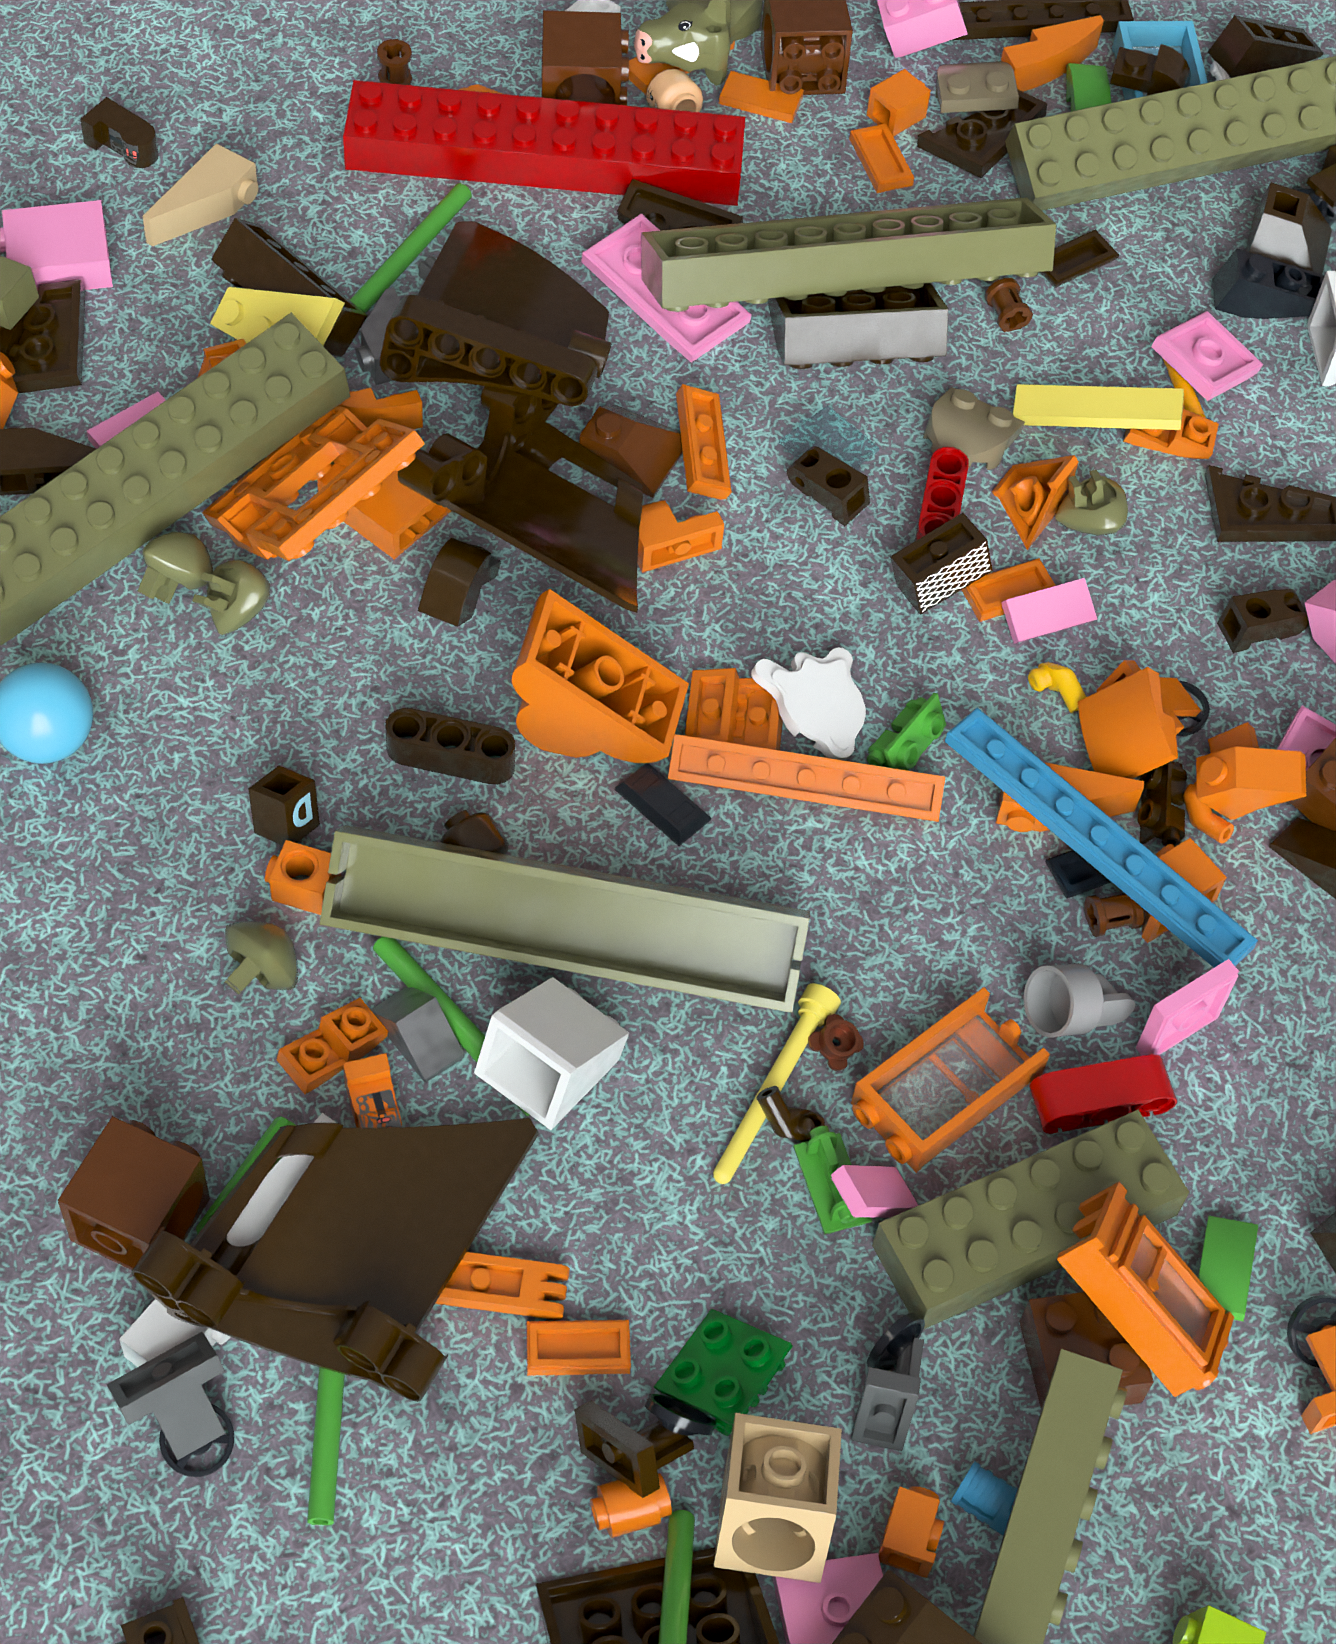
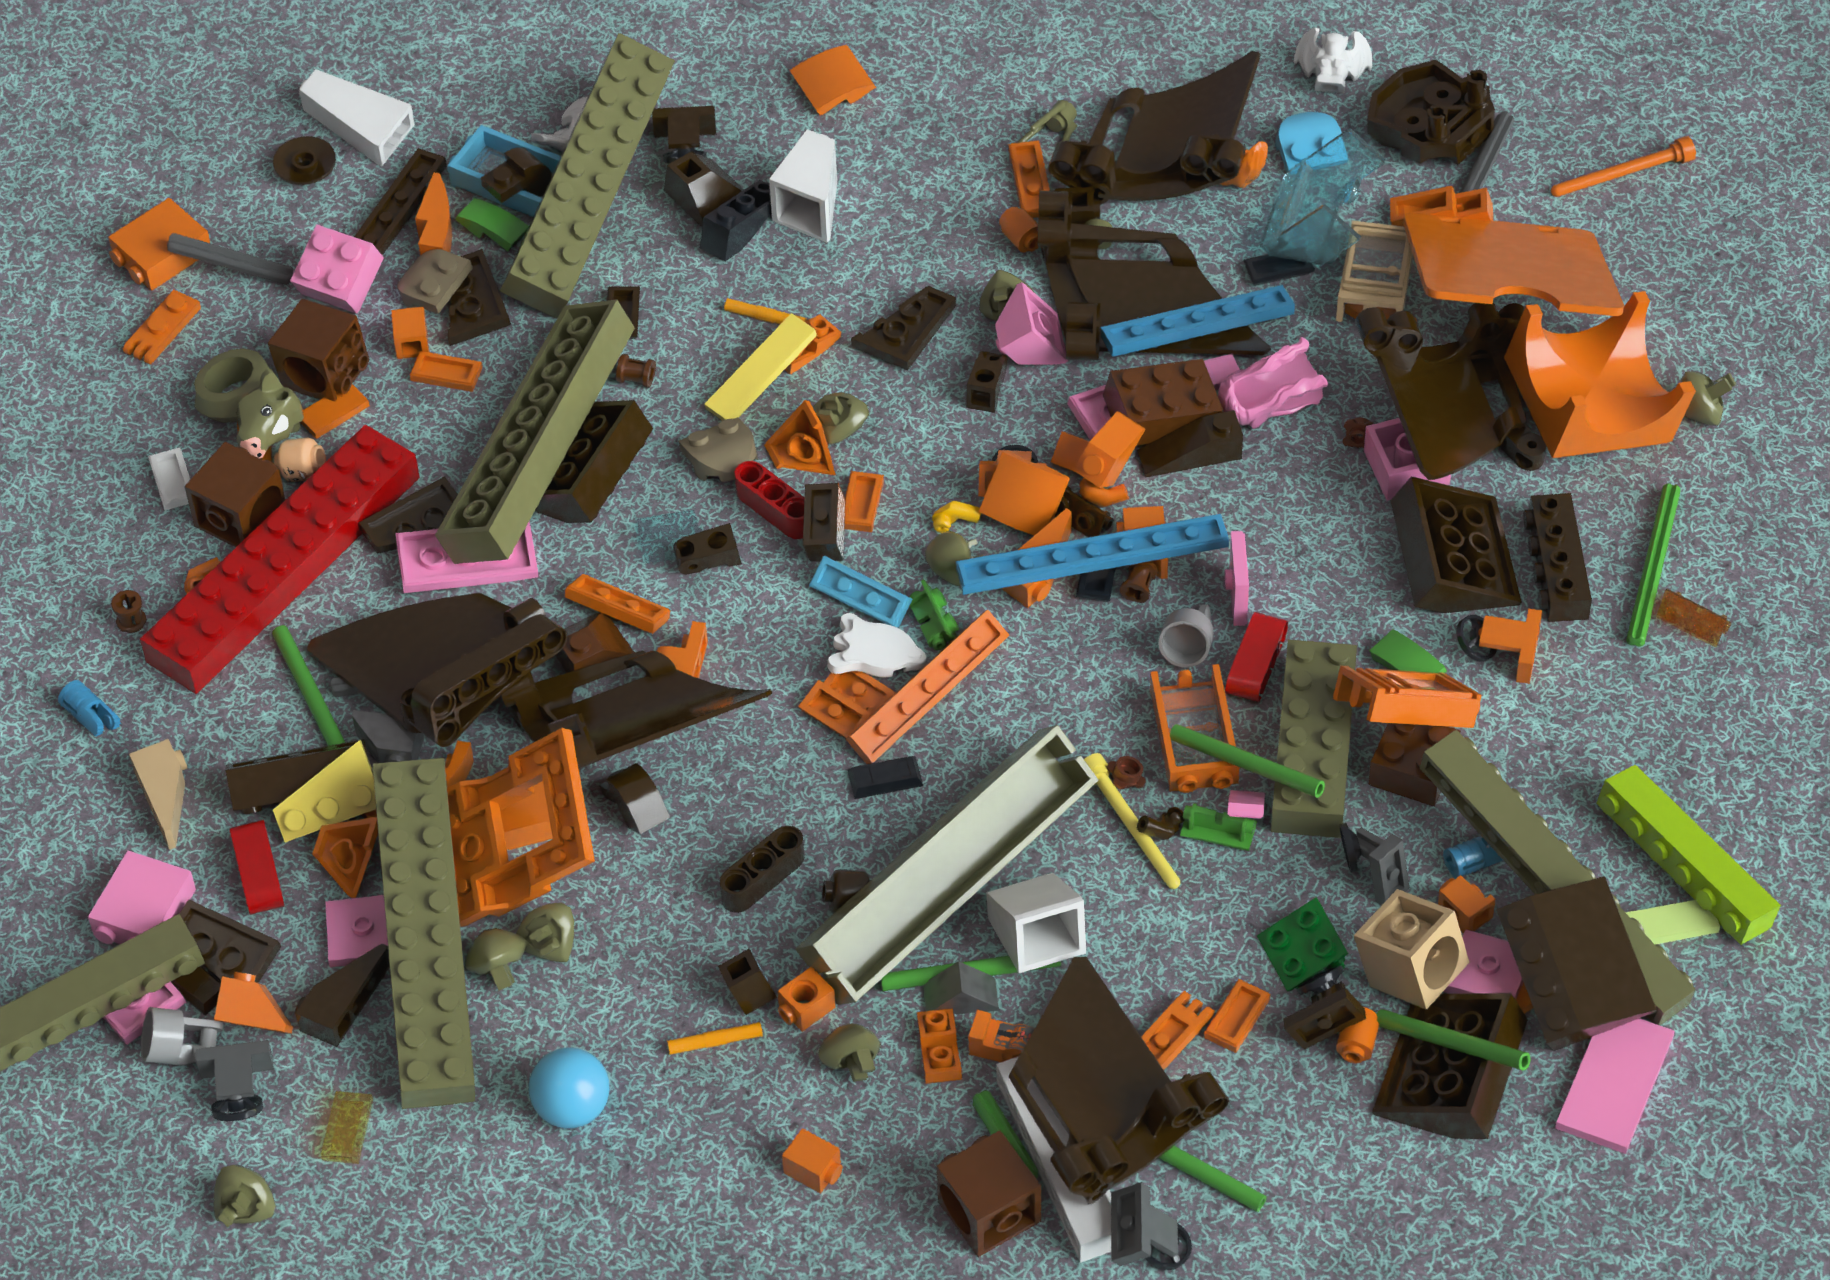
camera: 50 degrees left, 5 degrees down
(90, 996) = (812, 1161): none -> orange brick
(120, 131) = (59, 811): dark brown leg -> none
(160, 314) = (256, 867): none -> red beam
(207, 820) = (715, 1038): none -> light orange piece
(262, 91) = (94, 712): none -> dark azure hinge
(592, 689) = (789, 761): orange brick -> none
(885, 649) = (860, 592): none -> medium azure tile
(924, 1159) = (1247, 760): none -> bright green piece
(998, 699) = (945, 551): none -> olive piece
(1049, 610) = (896, 488): bright pink tile -> none
(1207, 355) = (762, 287): bright pink plate -> none
(1260, 46) = (529, 103): dark brown slope -> none

